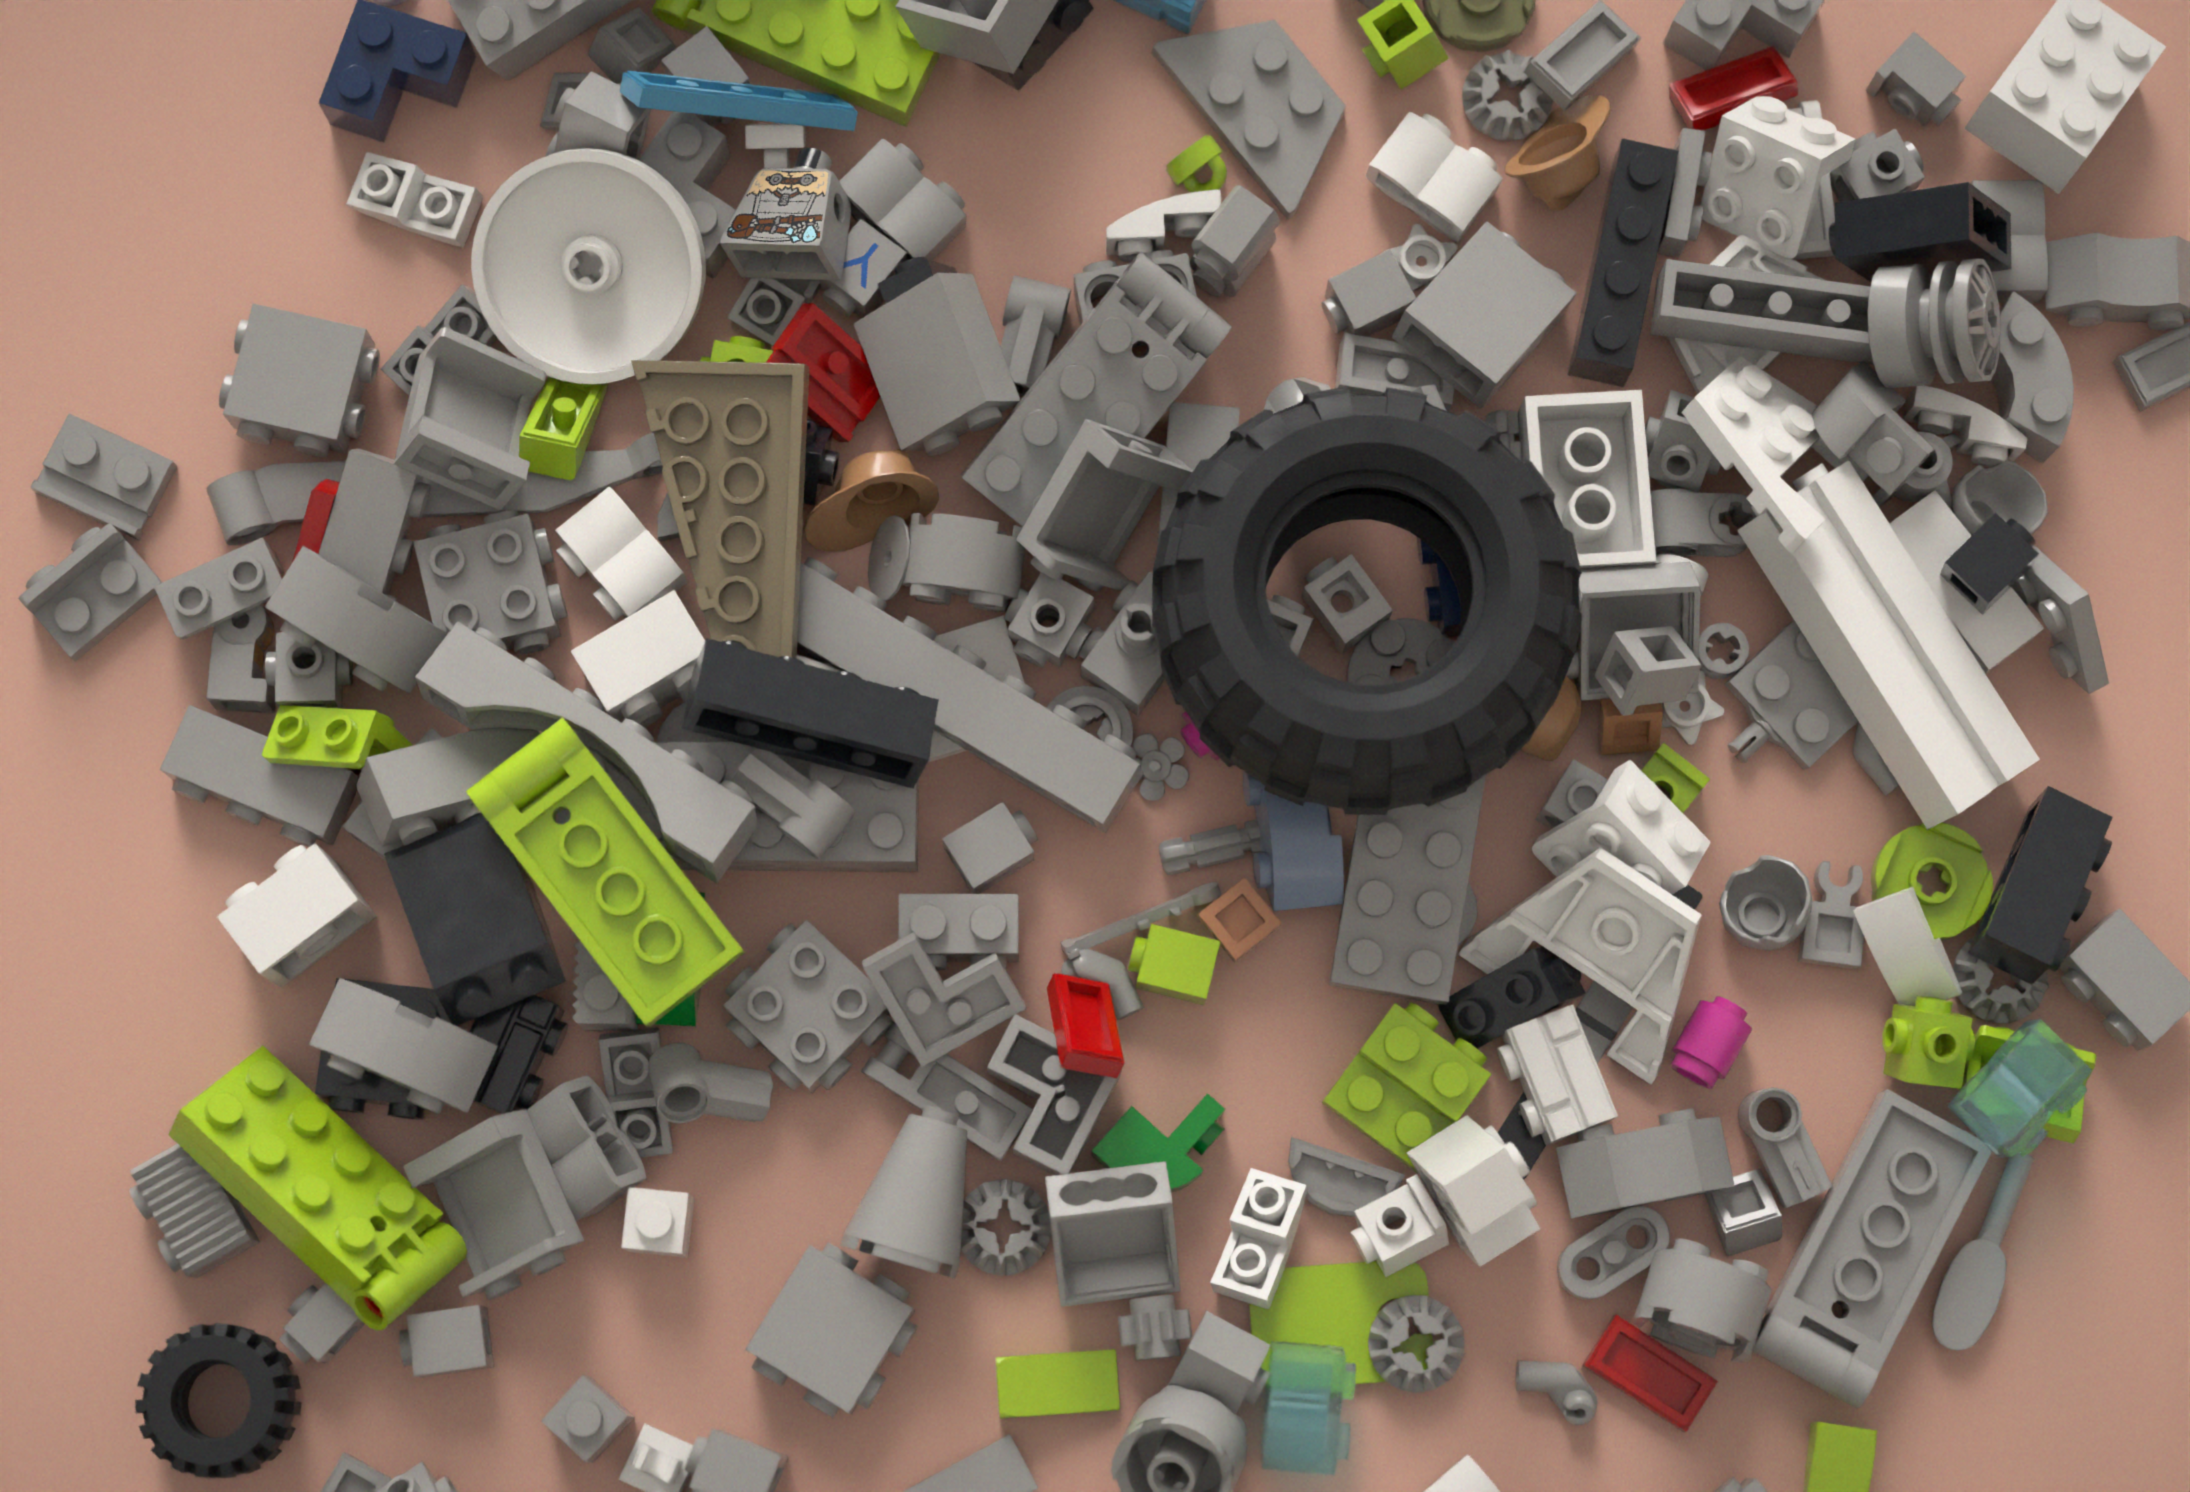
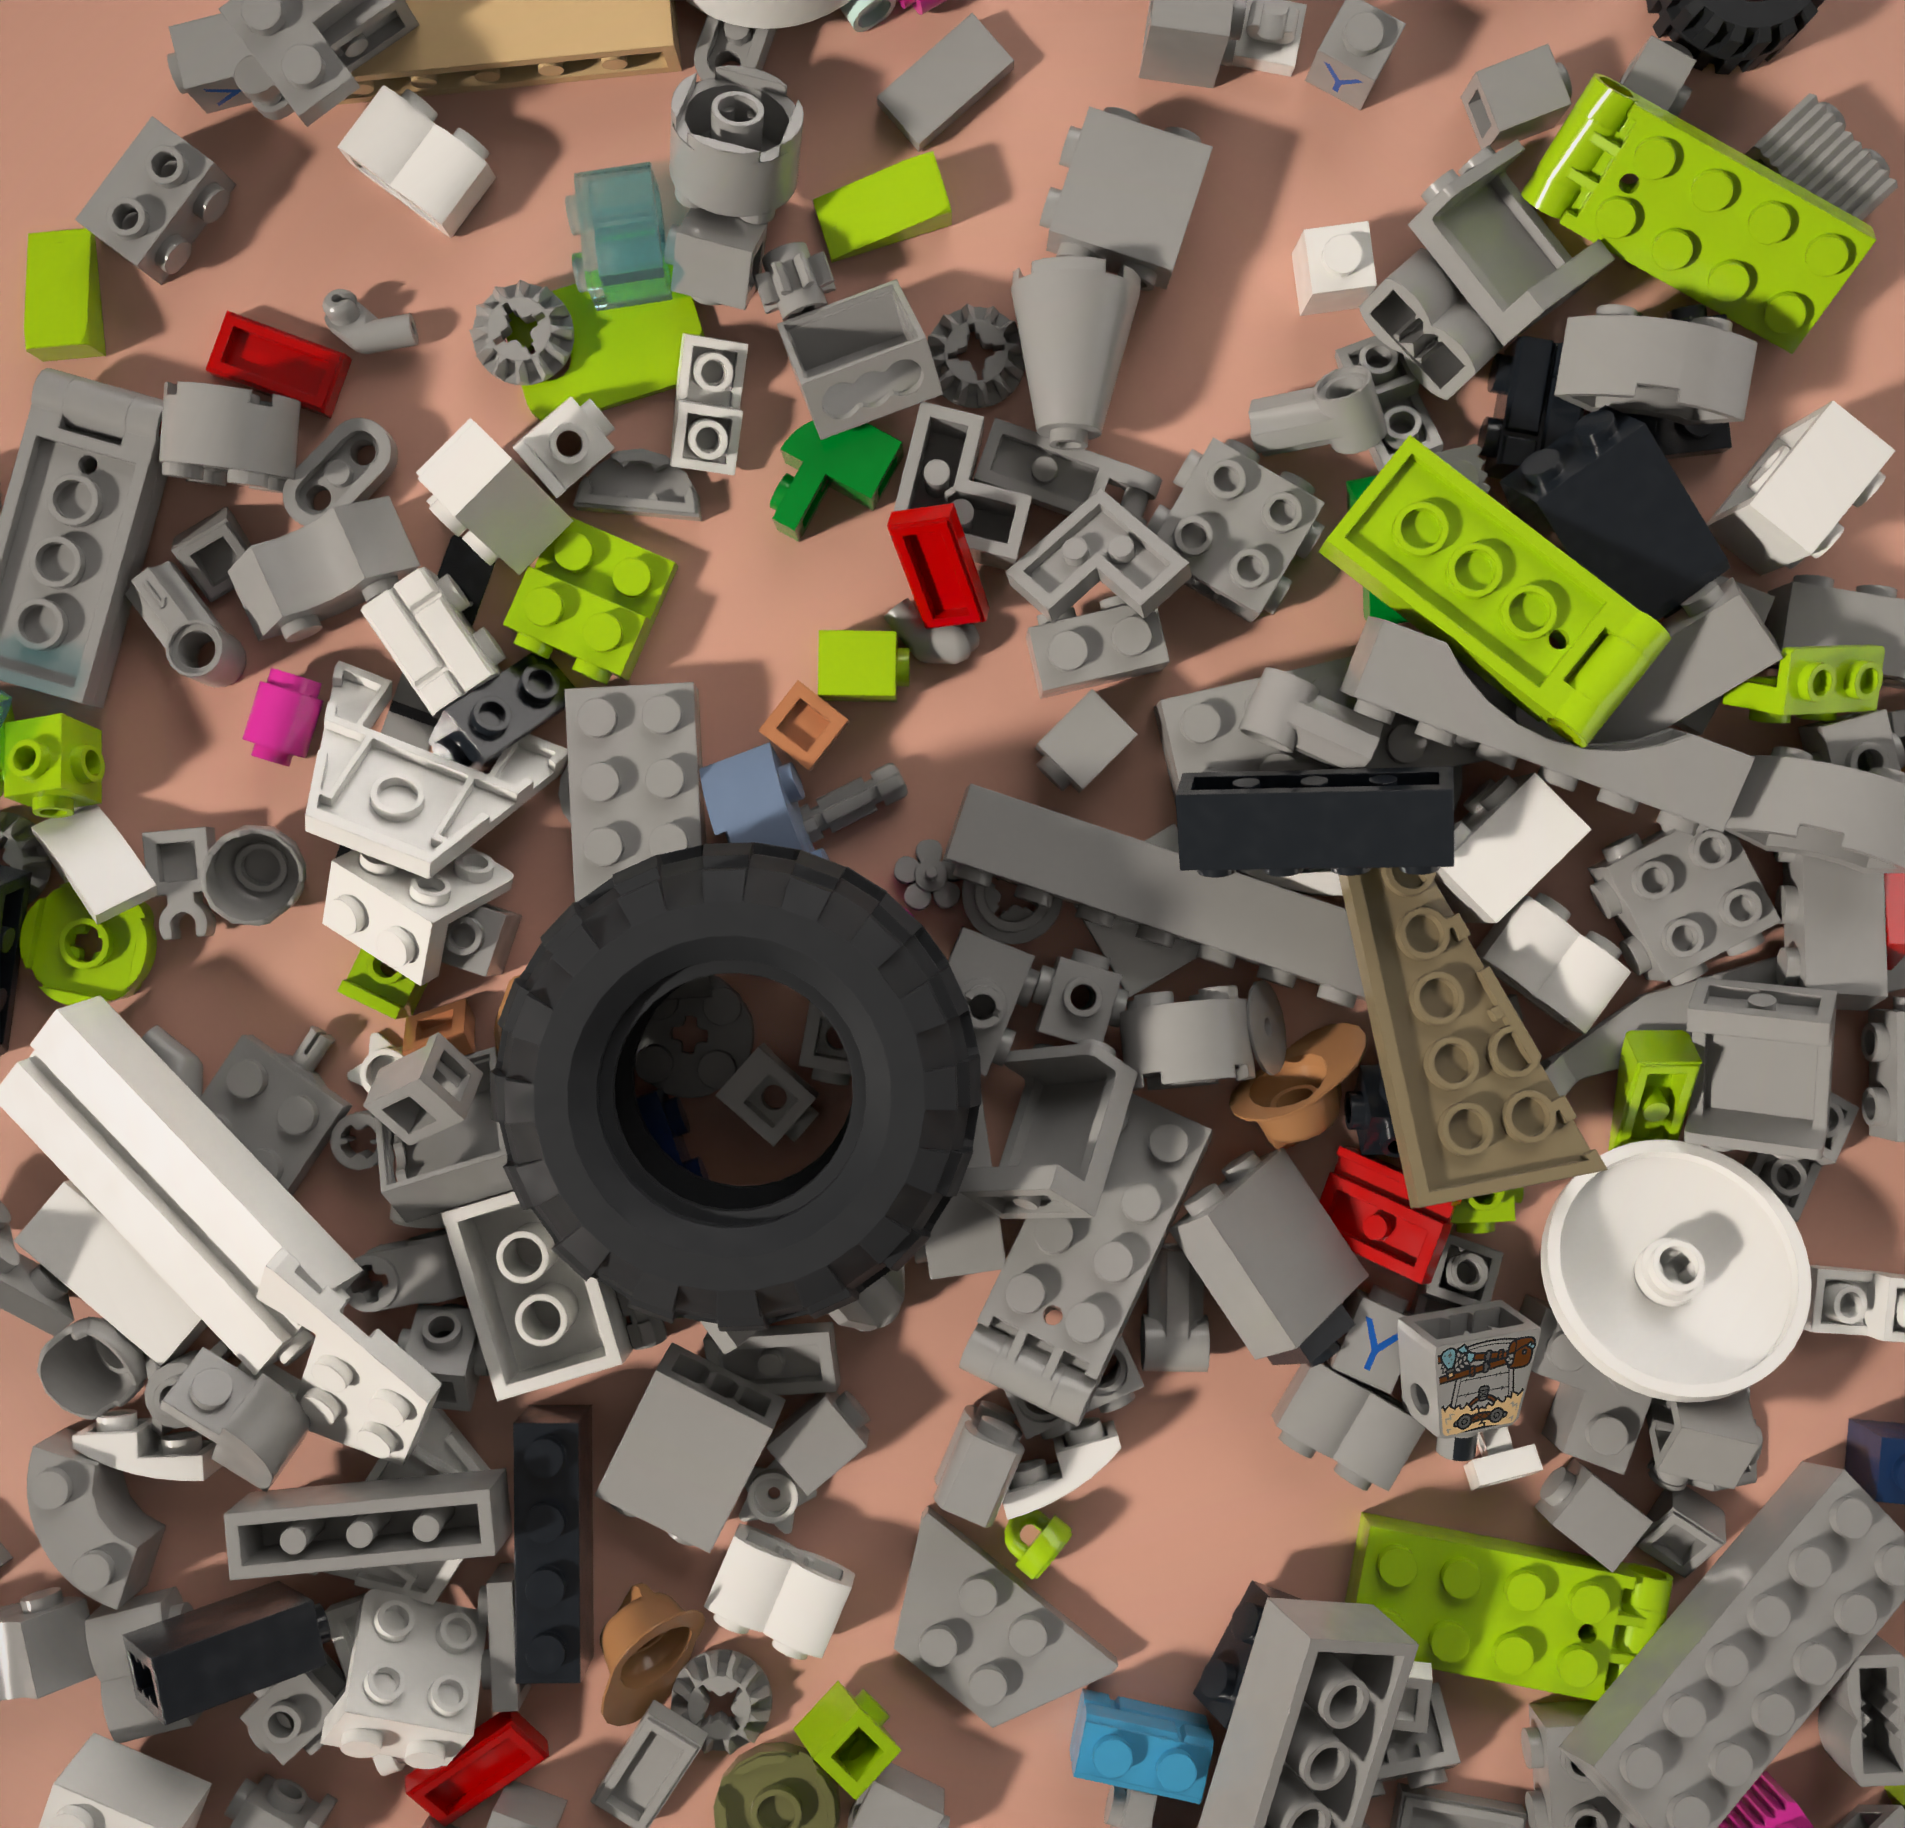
camera: 170 degrees right, 10 degrees up
(738, 100) = (1562, 1494): dark azure tile -> none
(1198, 896) = (852, 747): light grey piece -> none
(1934, 323) = (186, 1551): light grey wheel -> none
(1990, 562) = (74, 1296): black brick -> none

